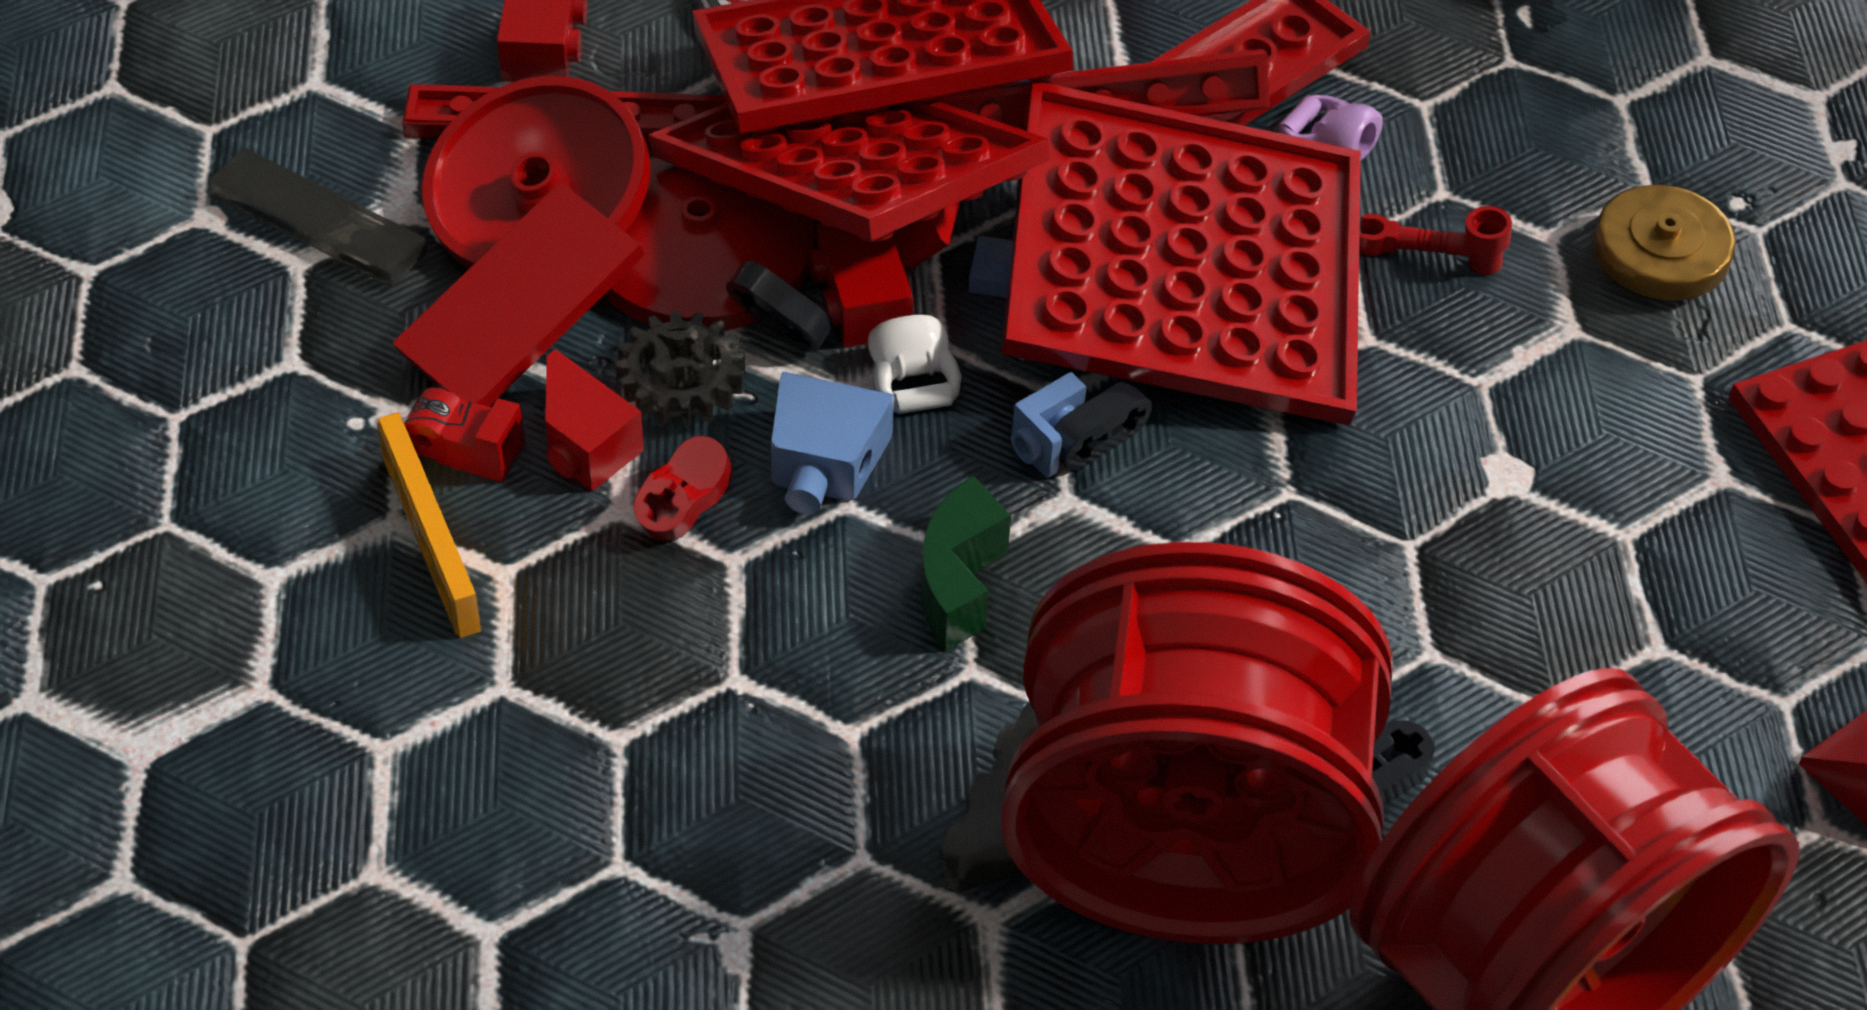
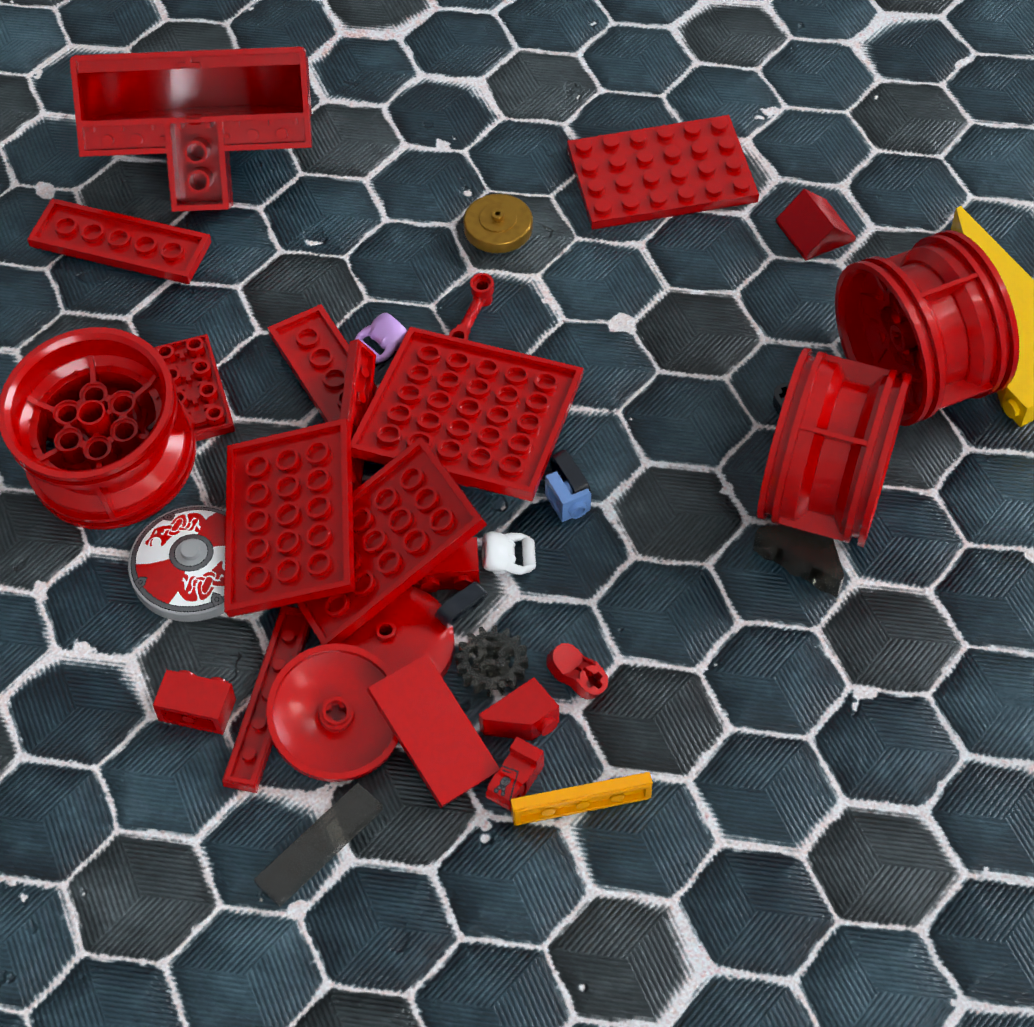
camera: 75 degrees left, 5 degrees up
(826, 439) = (557, 600): medium blue torso -> none
(961, 538) = (635, 552): dark green brick -> none

